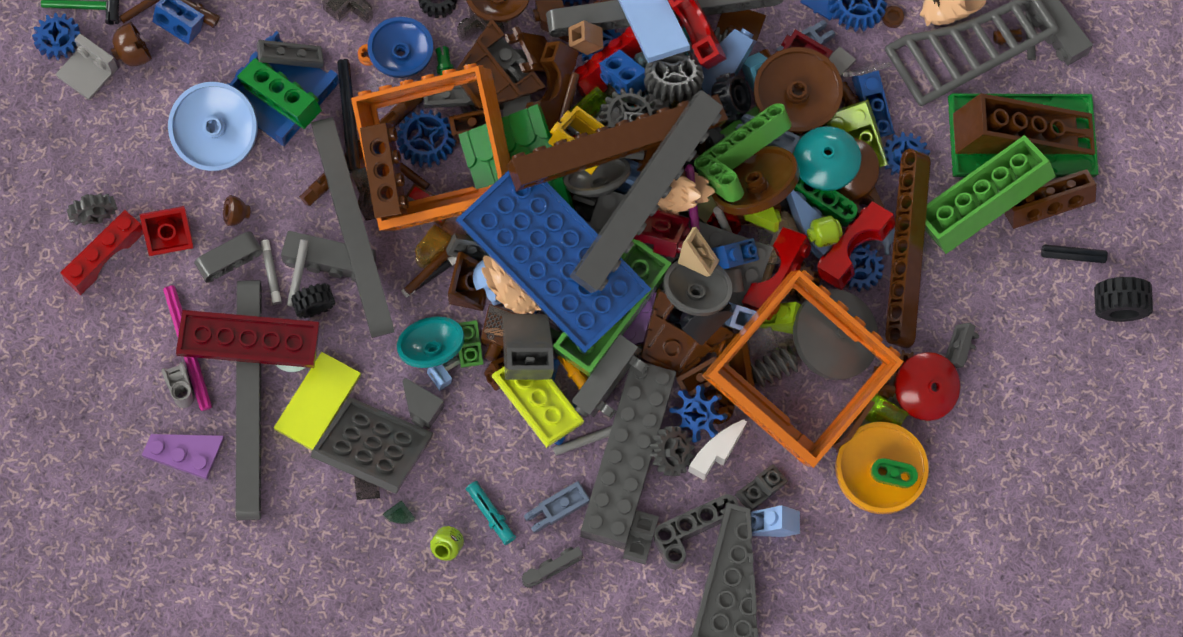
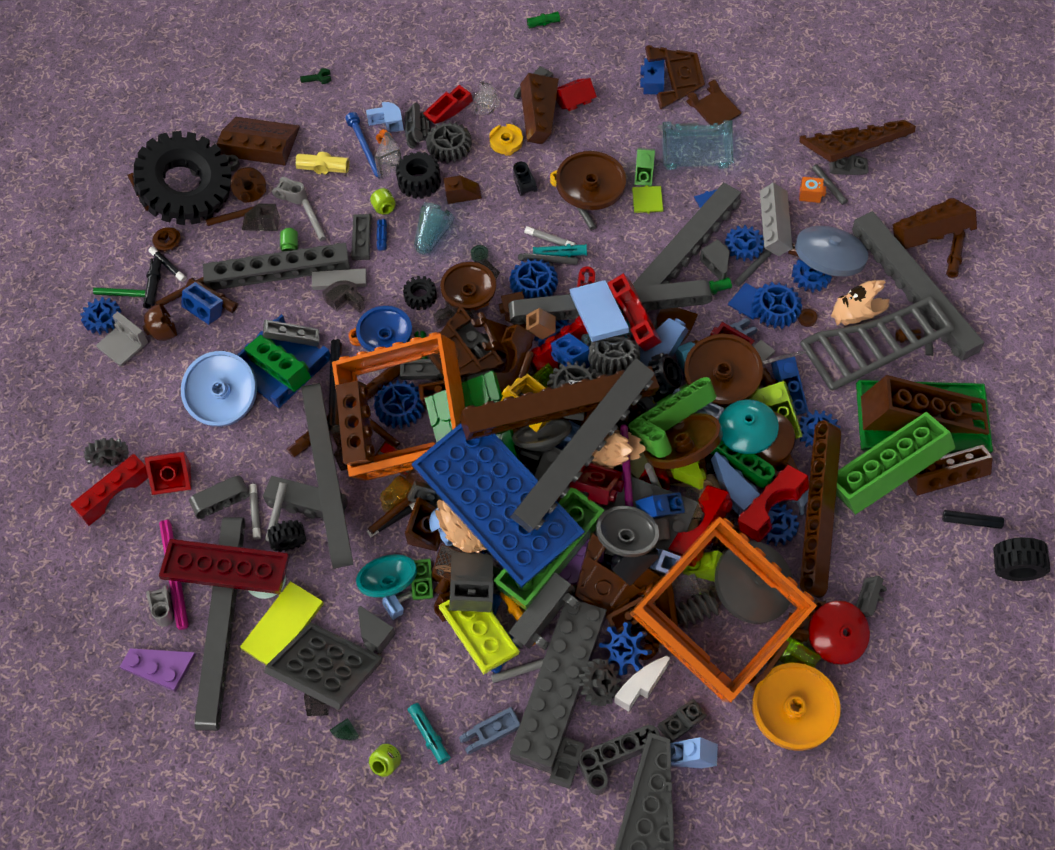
camera: 10 degrees right, 10 degrees down
(235, 210) = (230, 459): reddish brown brick -> none
(552, 567) = (481, 787): dark grey hinge -> none
(697, 254) = (628, 502): tan slope -> none
(824, 231) = (745, 489): lime head -> none
(893, 473) = (807, 710): green plate -> none

